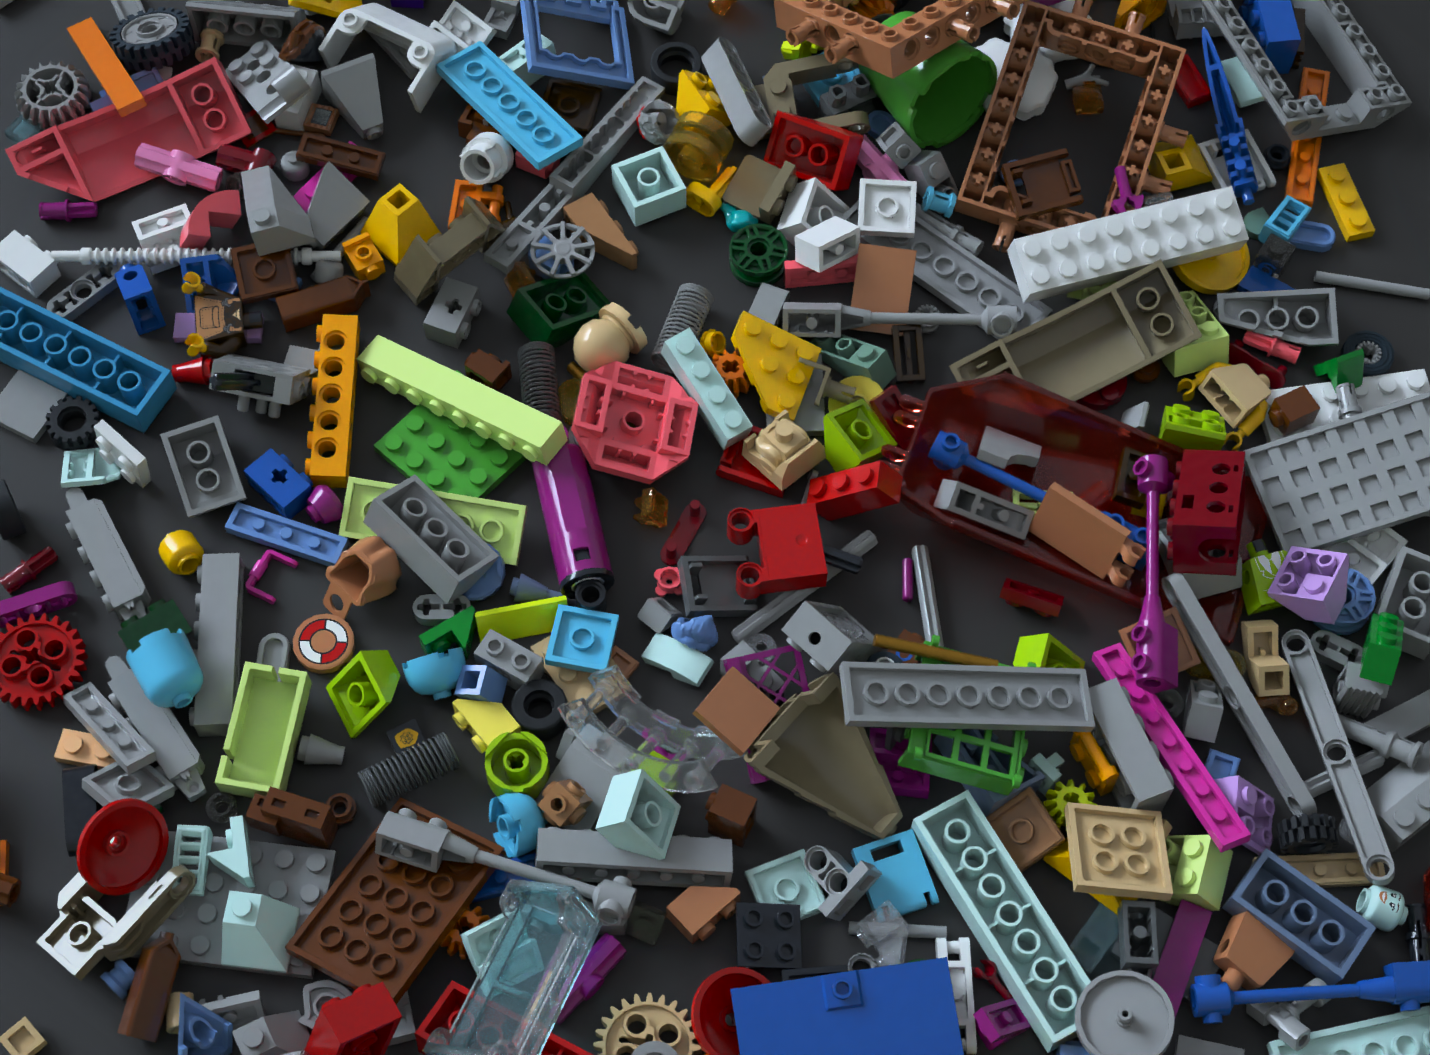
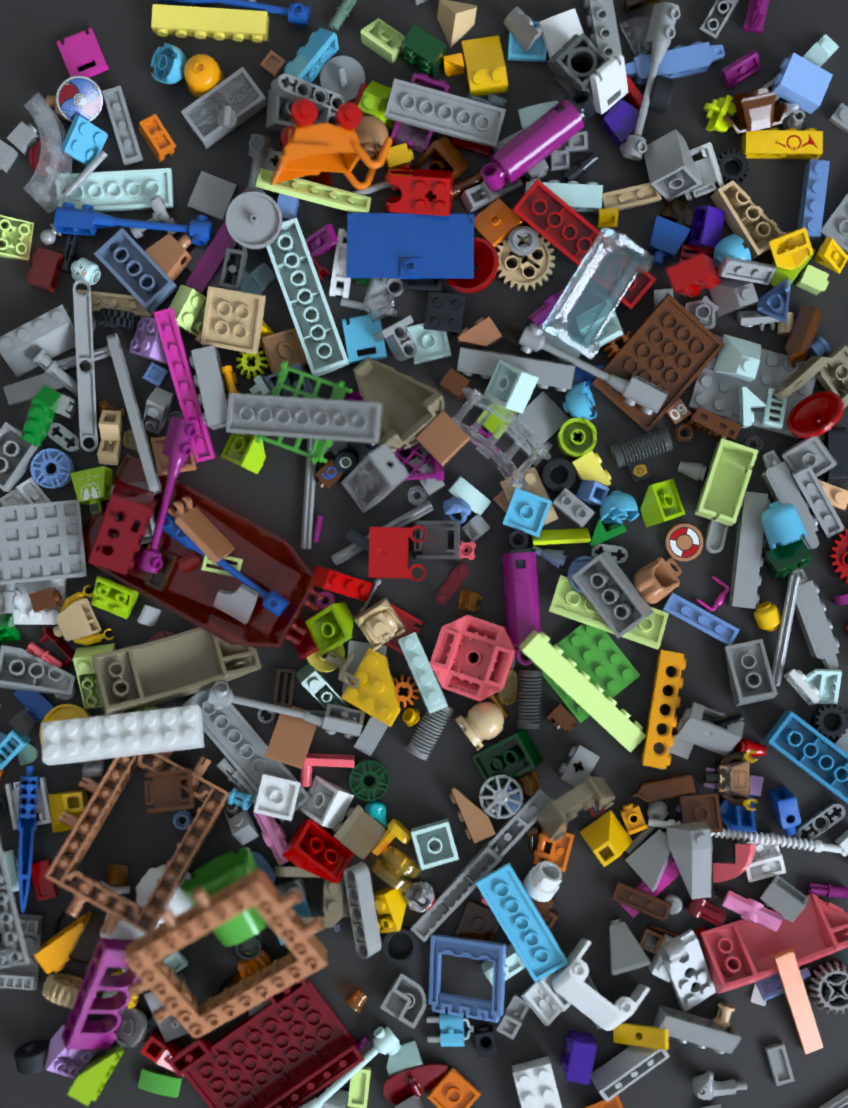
camera: 170 degrees left, 25 degrees up
(132, 185) = (784, 898): none -> light grey piece
(152, 38) = (764, 1022): black wheel -> none
(152, 534) = (785, 628): none -> light grey axle
(279, 483) = (712, 659): blue brick -> none
(303, 43) = (660, 996): reddish brown hat -> none
(324, 505) = (676, 635): magenta cone -> none
(351, 839) = (678, 412): none -> nougat tile
(573, 799) = (552, 407): medium nougat brick -> none
(827, 244) = (323, 772): white brick -> none
(898, 145) = (260, 847): light grey bracket -> none
(931, 651) = (316, 450): pearl gold bar -> none
(983, 508) = (264, 563): light grey slope -> none
(1022, 594) = (243, 501): dark red plate -> none
(1125, 192) = (114, 774): magenta bar -> none
(1312, 583) = (69, 473): lavender slope -> none

